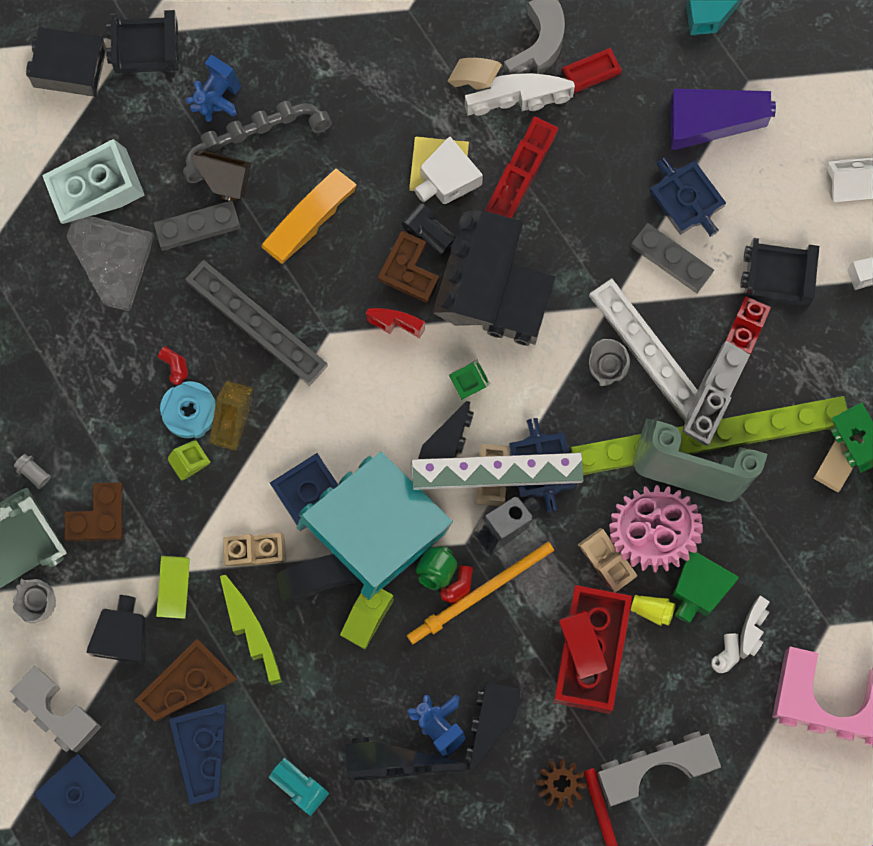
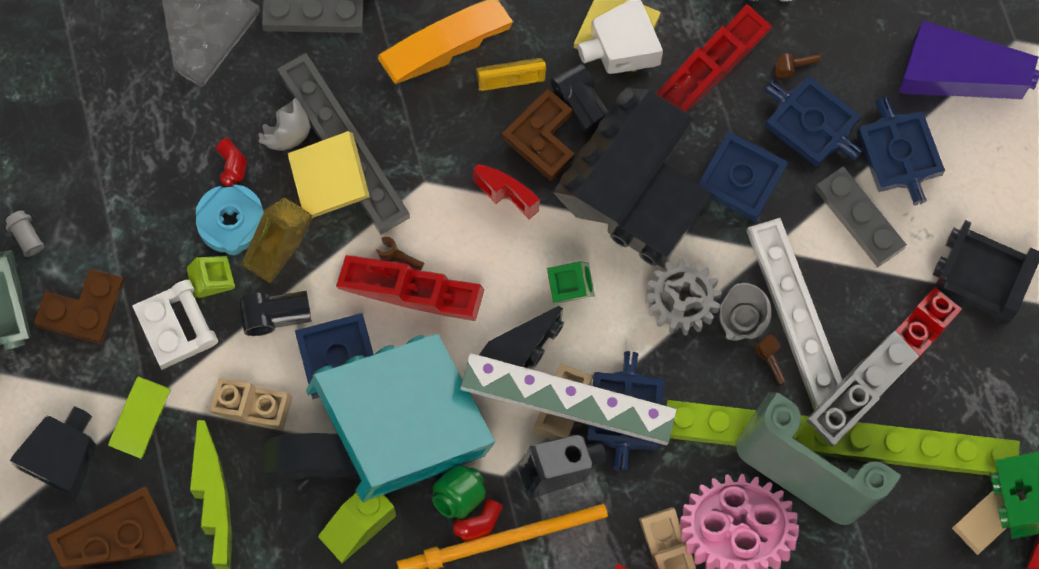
camera: 15 degrees right, 5 degrees down
(167, 512) = (164, 329): none -> white plate
(211, 324) = (290, 128): none -> light grey hair
(241, 476) = (265, 312): none -> black piece
(254, 352) = (328, 174): none -> light yellow tile
(328, 398) = (395, 254): none -> reddish brown hand
(346, 421) = (410, 288): none -> red slope
(368, 226) = (511, 74): none -> yellow slope
(567, 362) = (697, 301): none -> light grey gear
(573, 254) = (742, 176): none -> dark blue plate
(579, 153) = (785, 65): none -> reddish brown hand
(613, 194) = (813, 121): none -> dark blue plate
(633, 384) = (765, 350): none -> reddish brown hand

